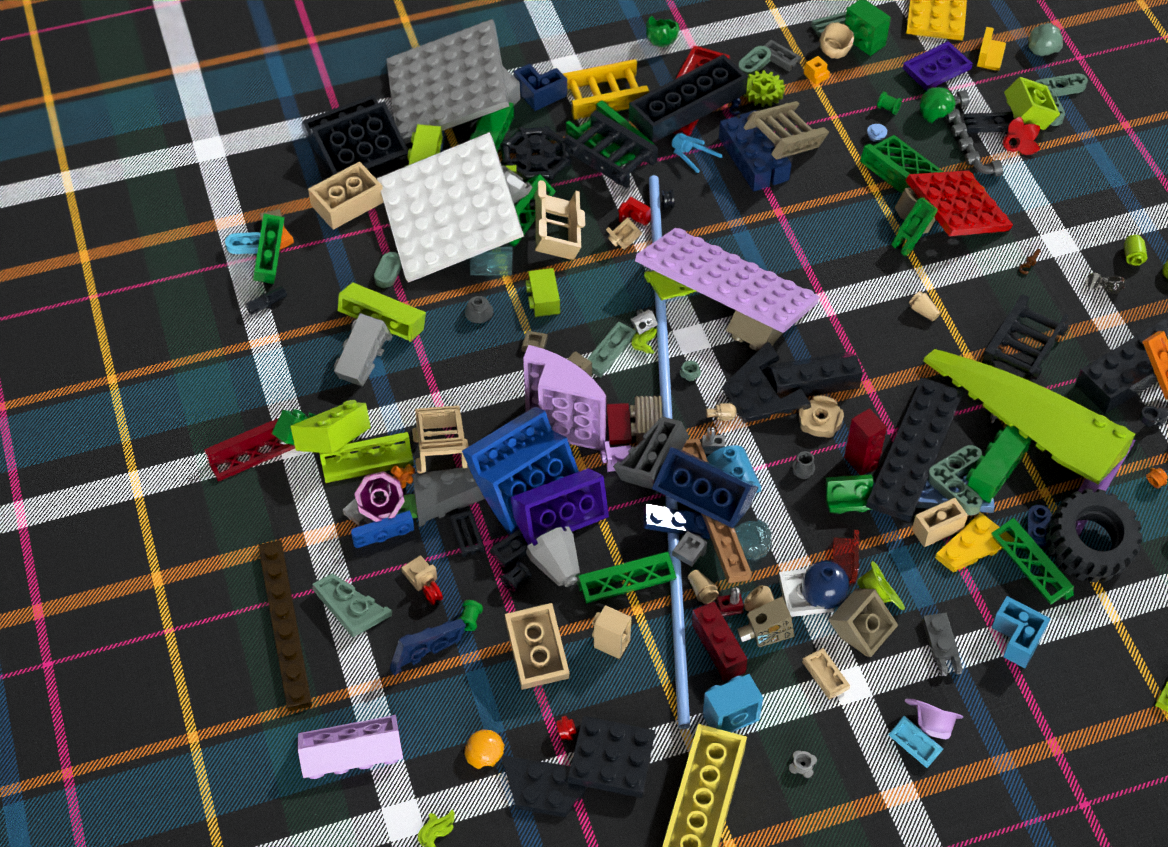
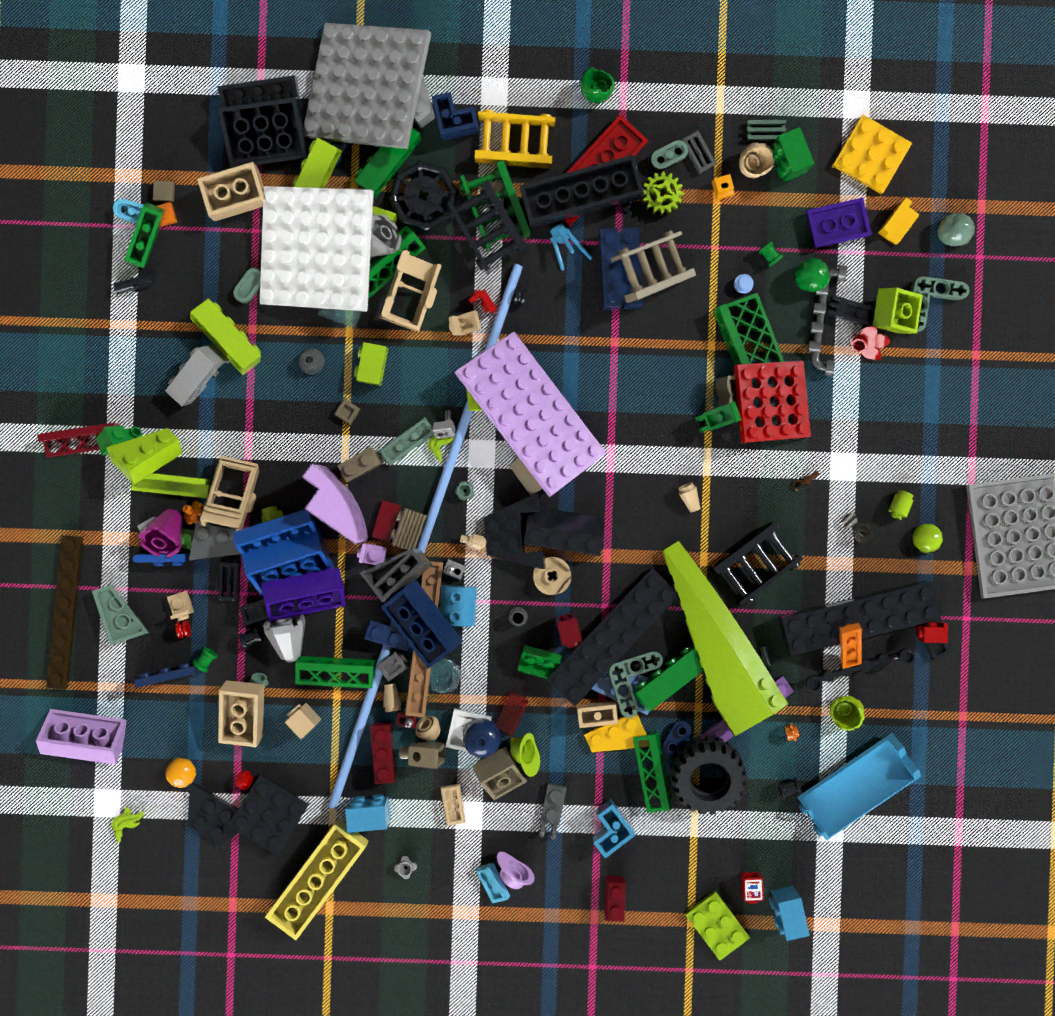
camera: 20 degrees right, 35 degrees up
(1066, 707) = (615, 898): none -> dark red brick

